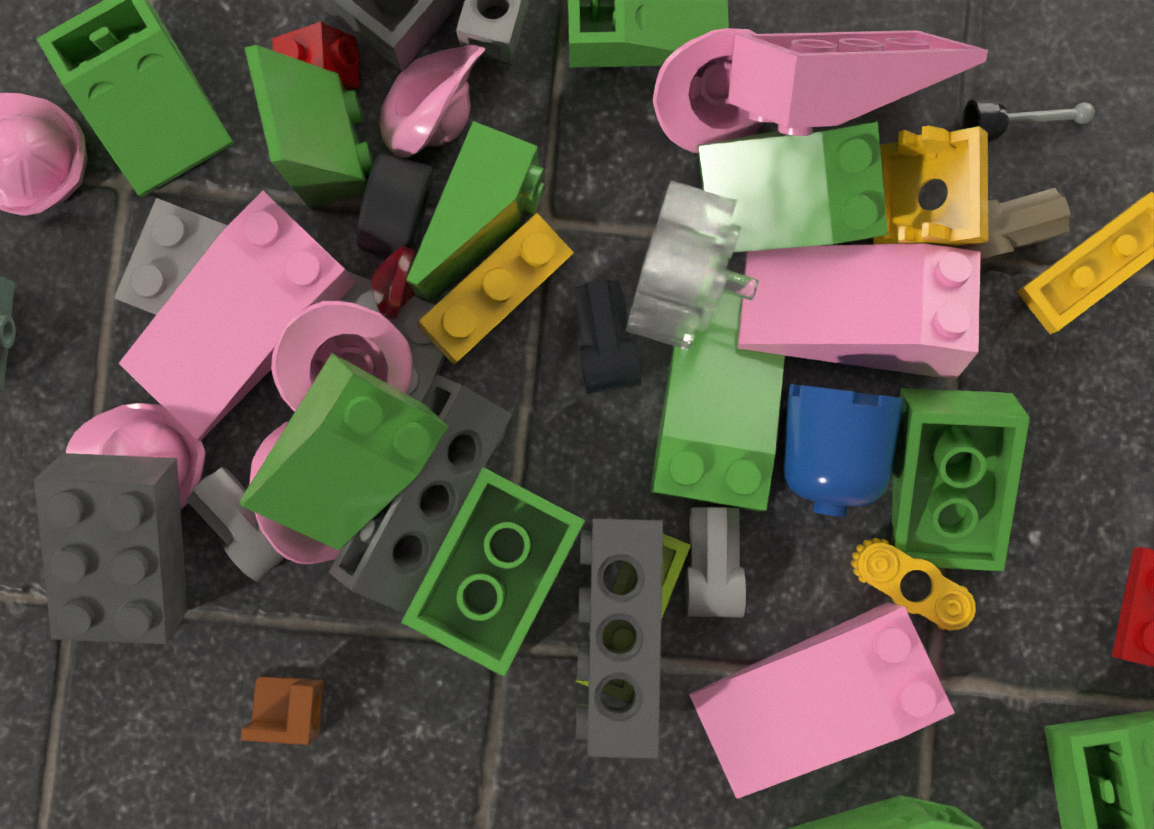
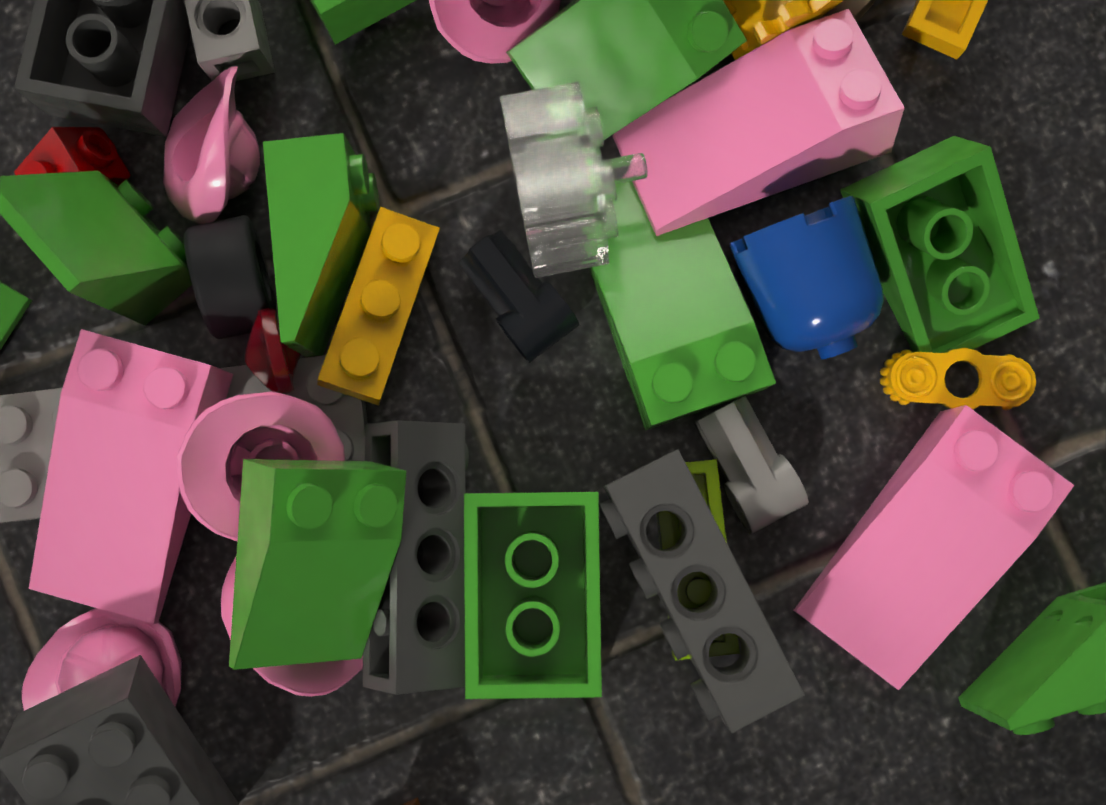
camera: 25 degrees left, 0 degrees up
(218, 504) = (208, 678): light grey piece -> none

